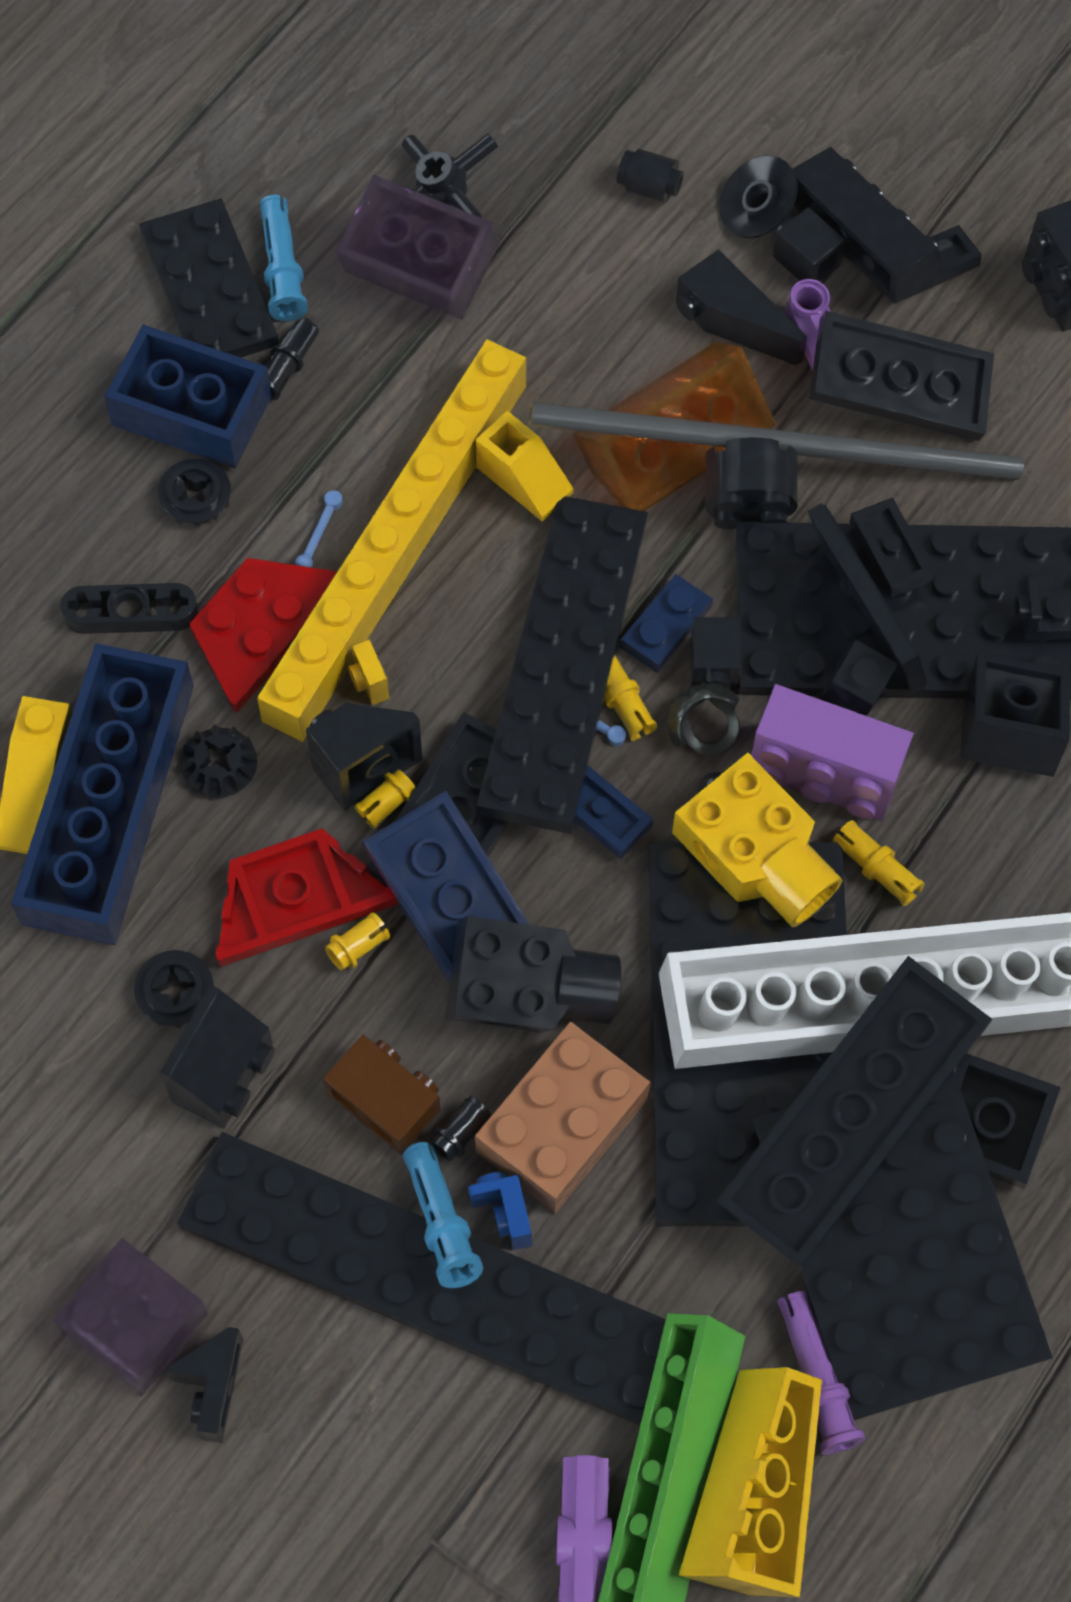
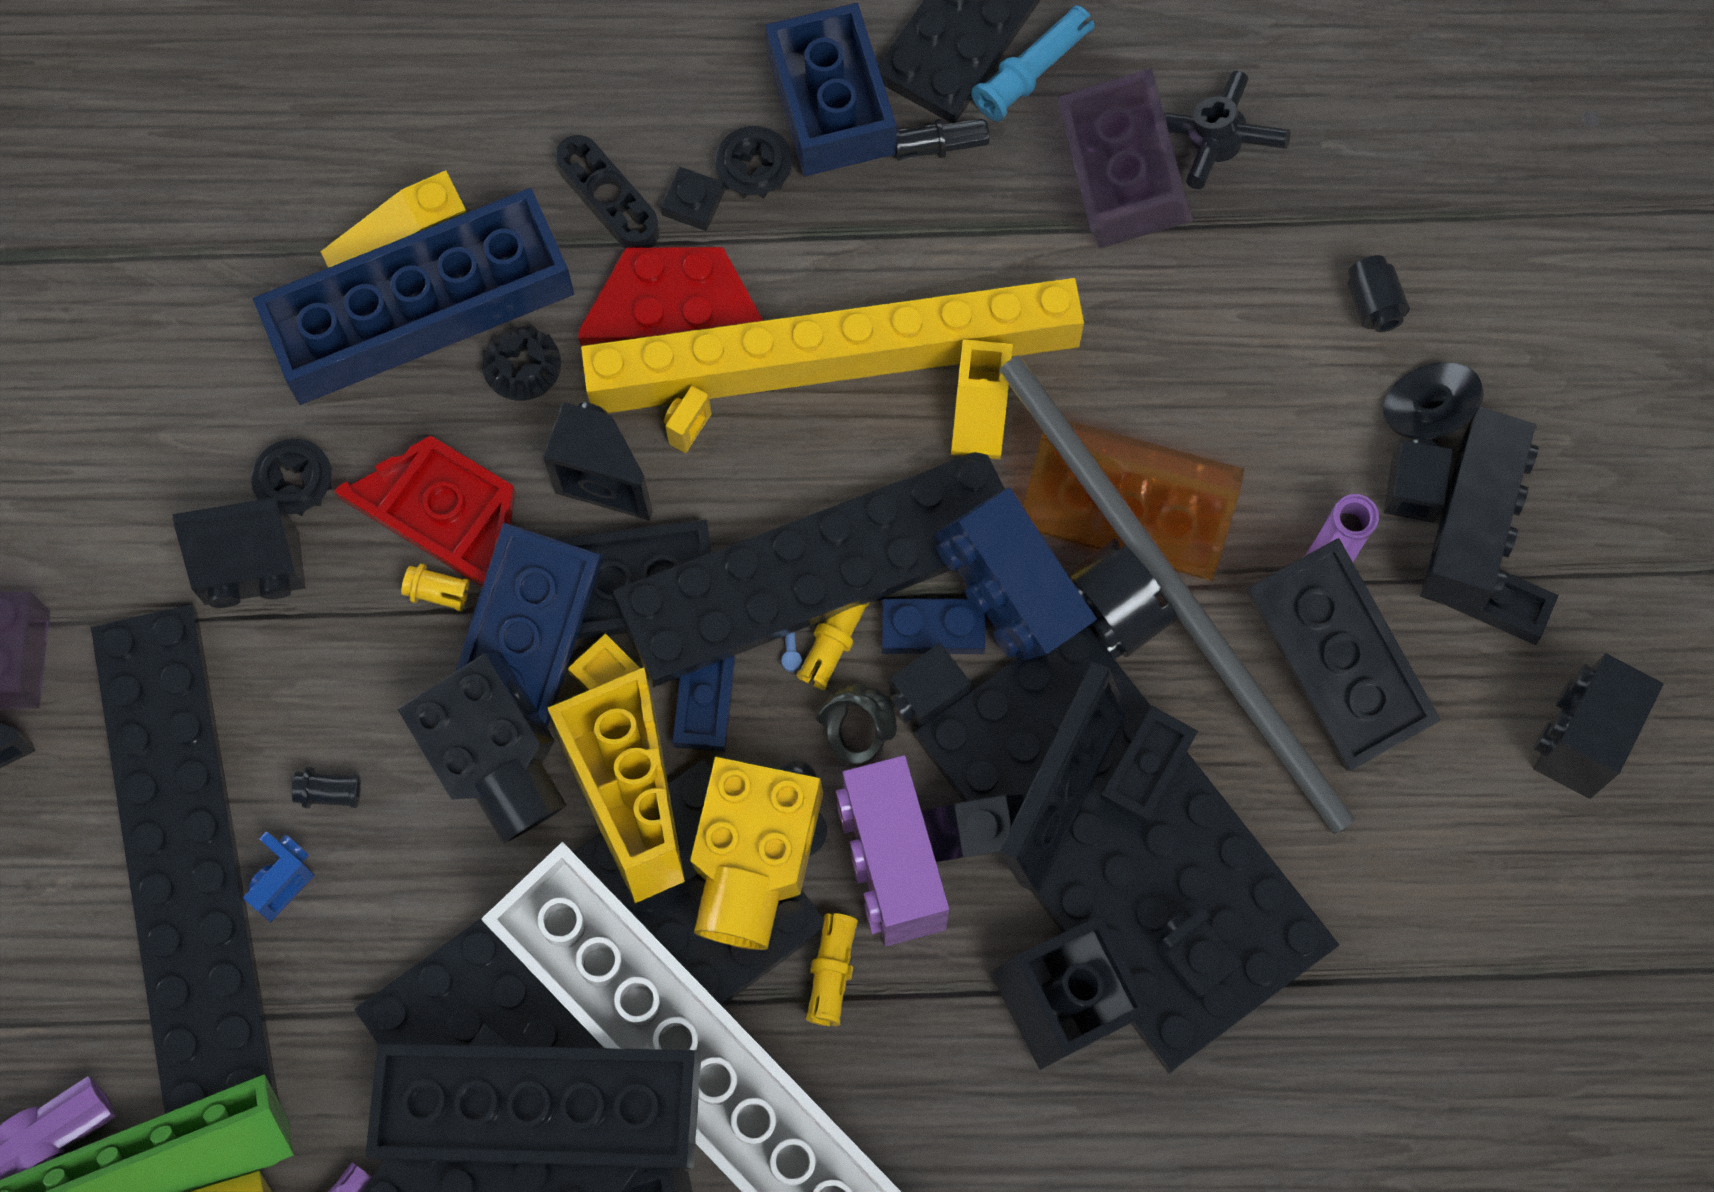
camera: 55 degrees right, 5 degrees up
(186, 553) = (693, 198): none -> black plate
(333, 501) = (836, 275): medium blue hinge -> none
(383, 1093) = (311, 705): reddish brown brick -> none
(385, 798) = (583, 515): yellow pin -> none
(445, 1231) = (212, 841): dark azure pin -> none
(525, 864) = (601, 664): none -> yellow plate
(562, 1117) = (388, 864): nougat brick -> none
(635, 897) = (620, 768): none -> yellow wedge
(687, 530) = (1013, 577): none -> dark blue brick
(737, 310) = (1296, 460): black slope -> none

